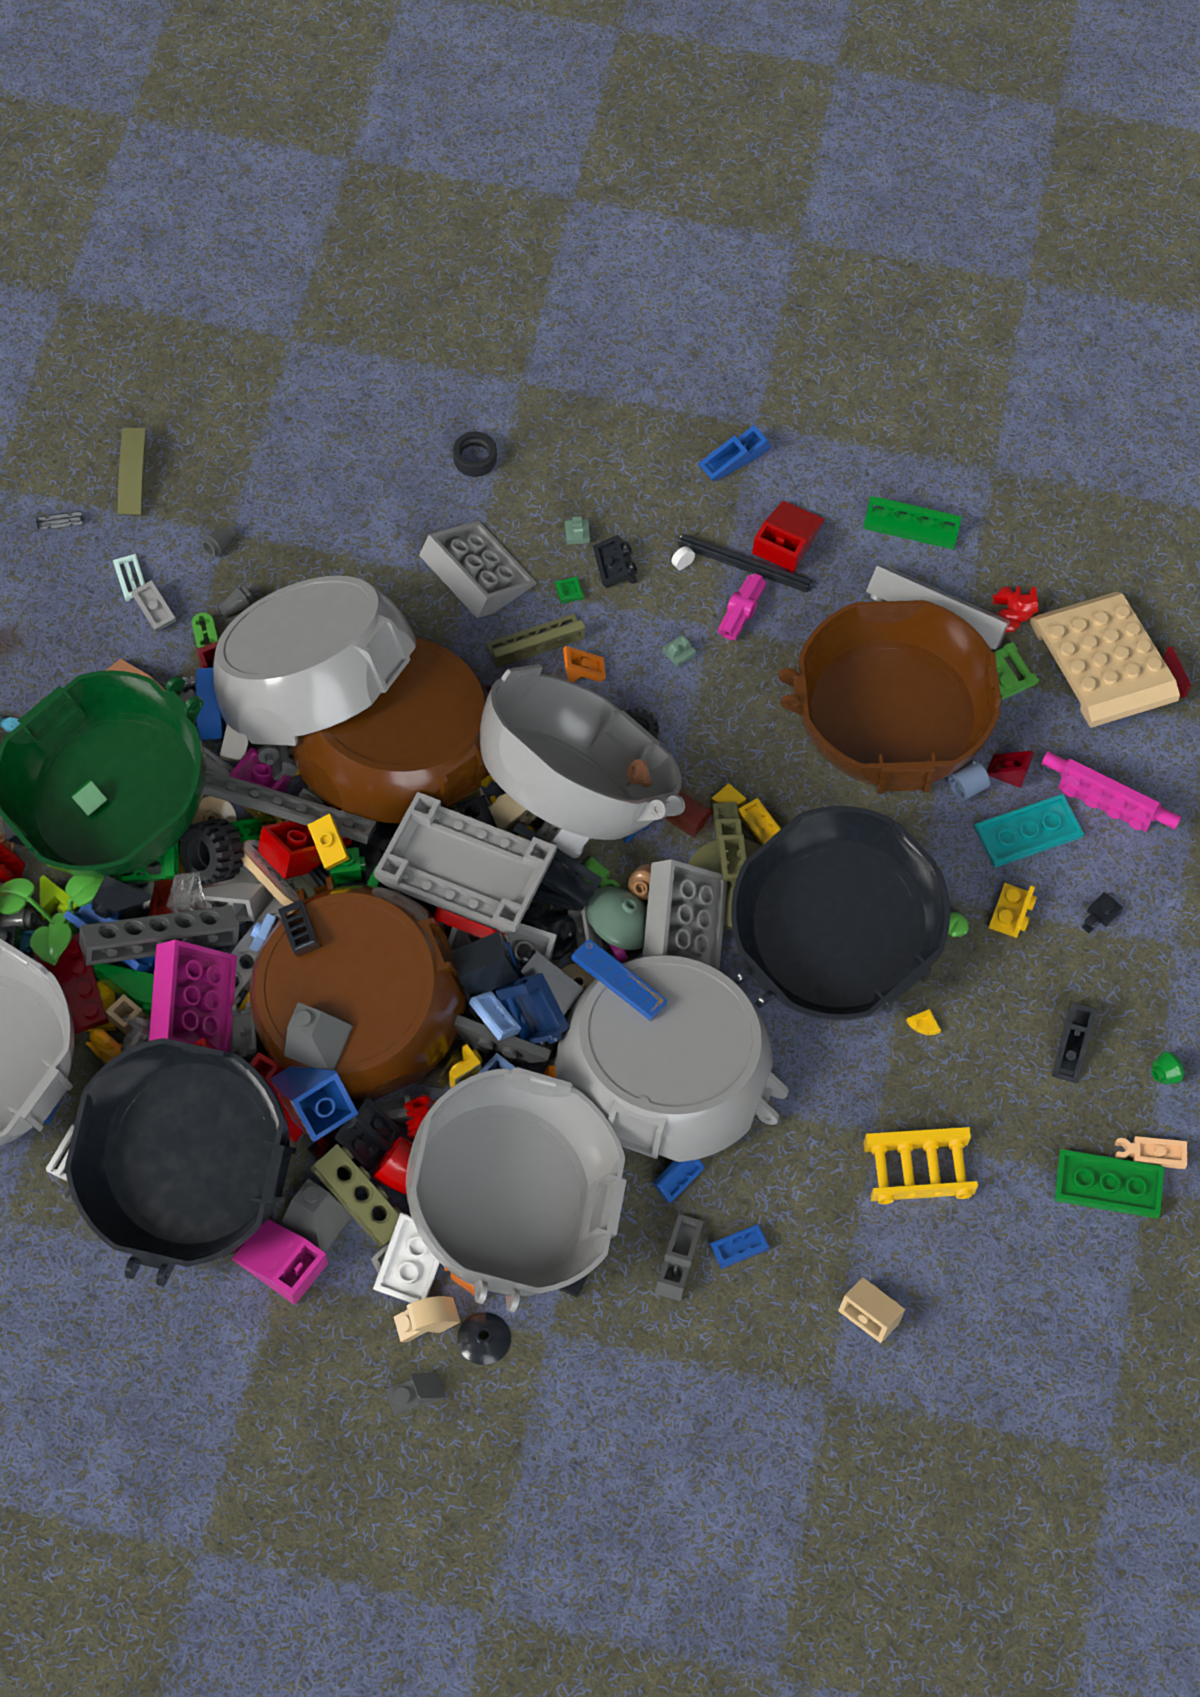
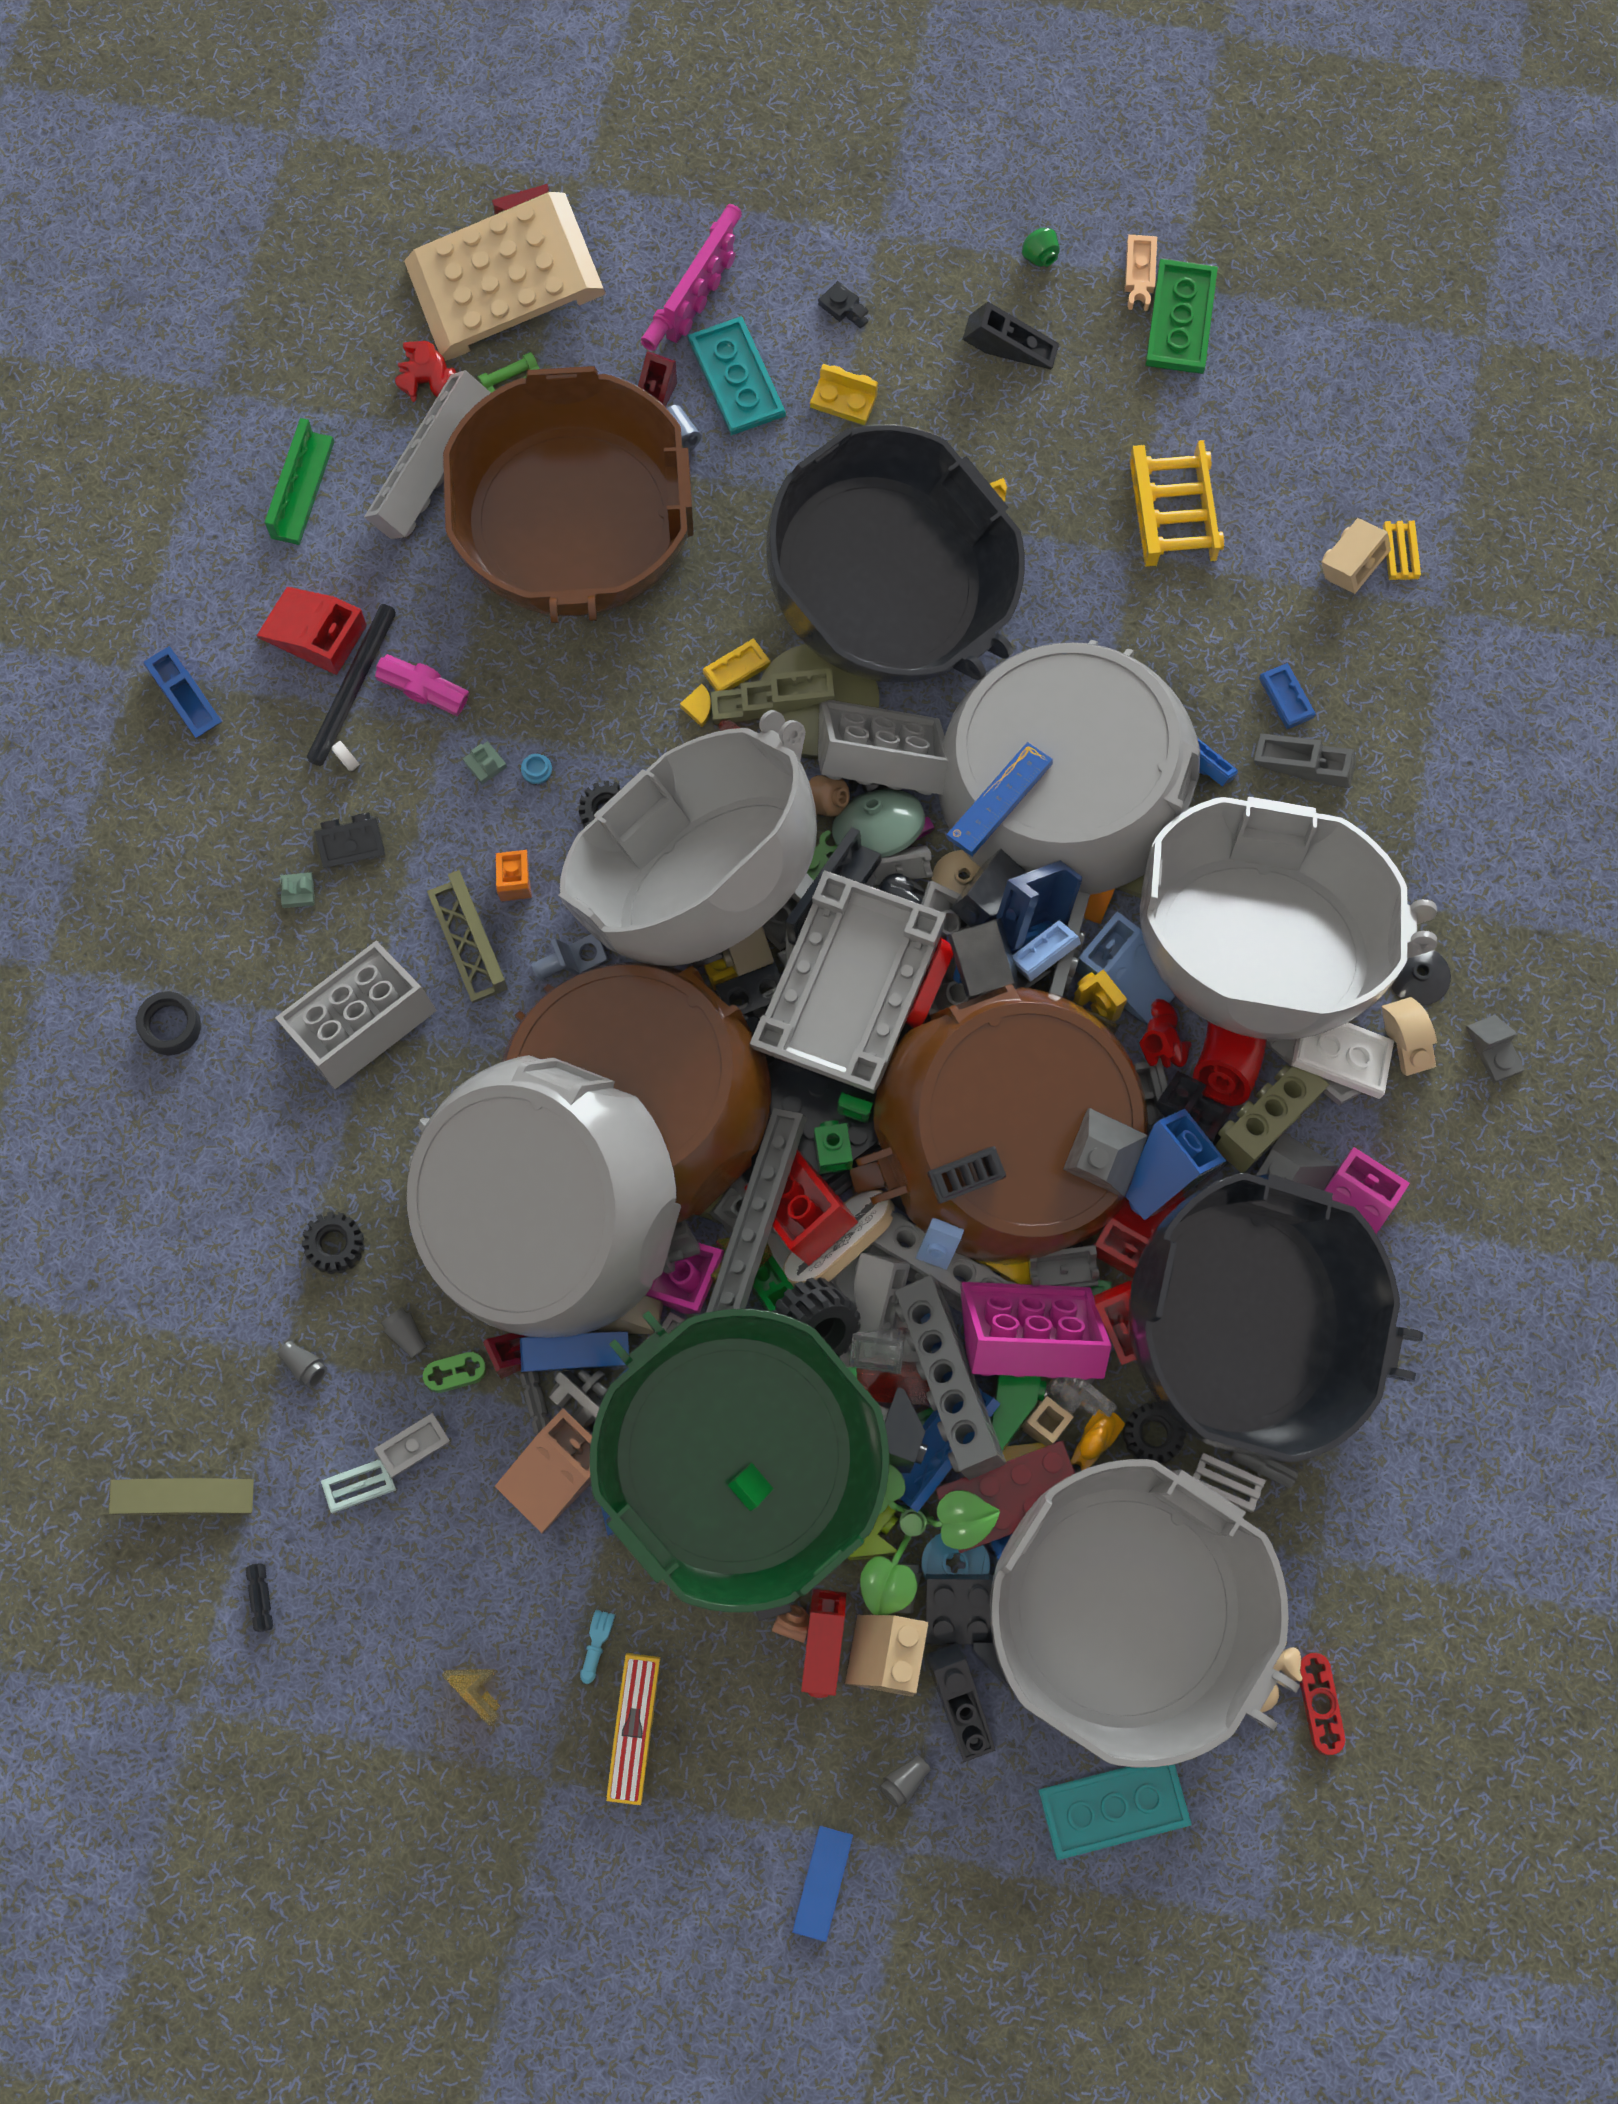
camera: 90 degrees left, 10 degrees up
(305, 545) = (328, 1224): none -> black tyre
(328, 842) = (814, 1161): yellow plate -> none
(569, 590) = (389, 899): green tile -> none
(638, 773) = (705, 782): nougat plate -> none
(673, 685) = (536, 769): none -> dark azure plate
(908, 1367) = (1399, 527): none -> yellow tile

